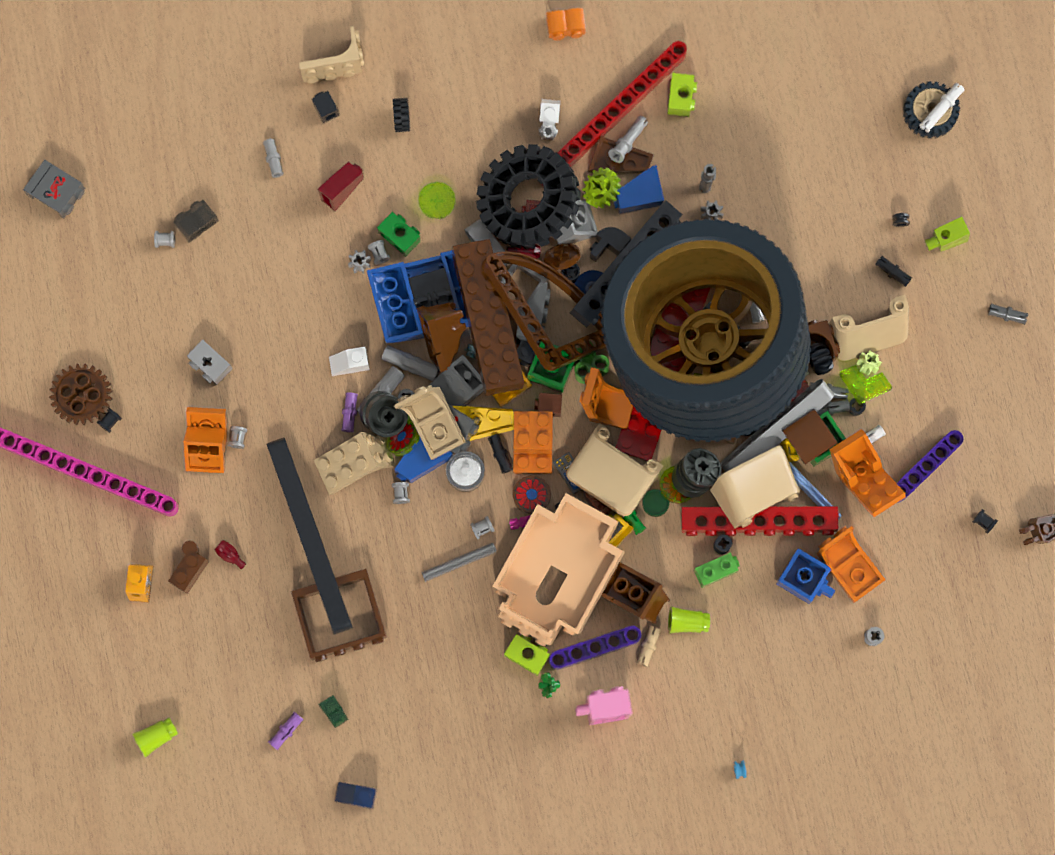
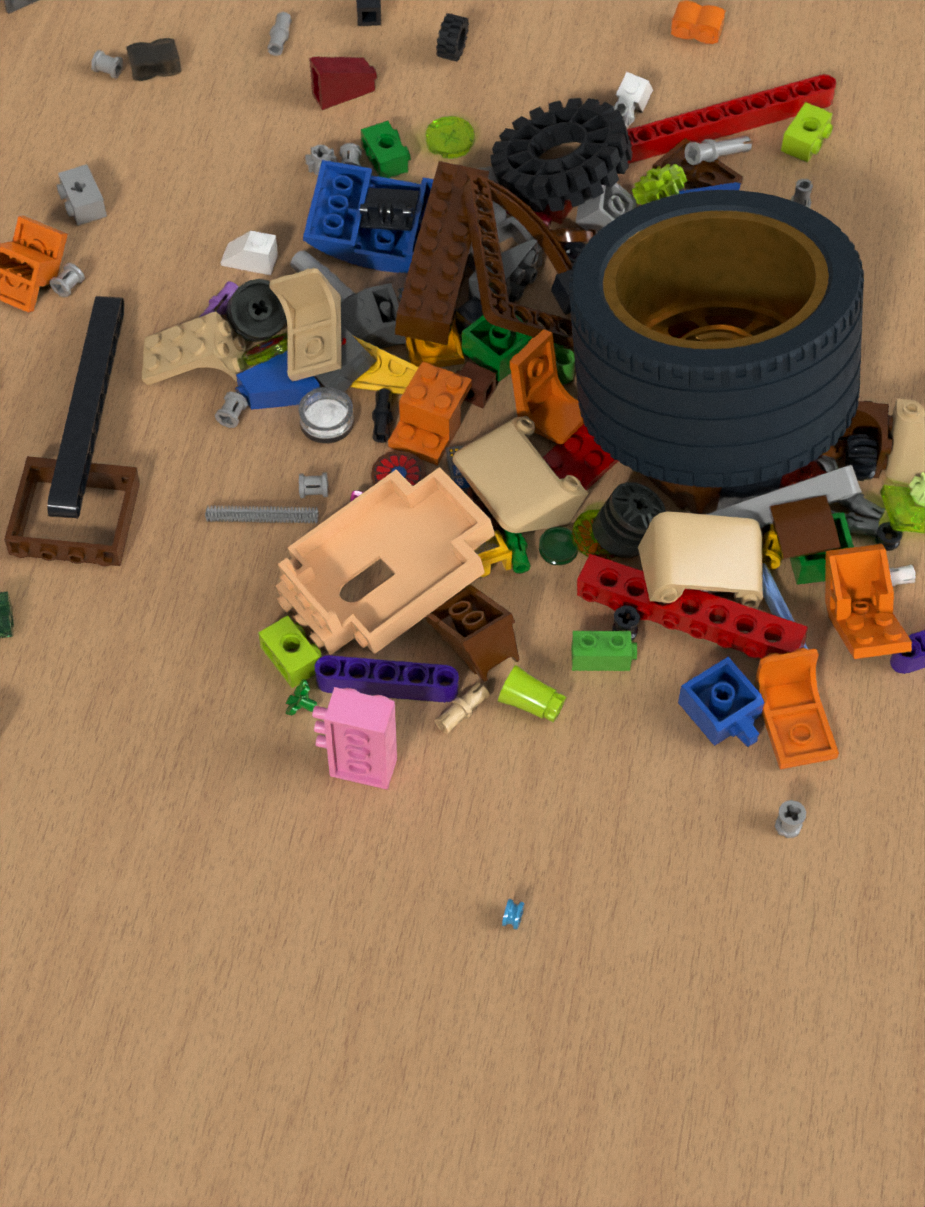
camera: 25 degrees right, 20 degrees down
(441, 332) = (377, 246): reddish brown piece -> none

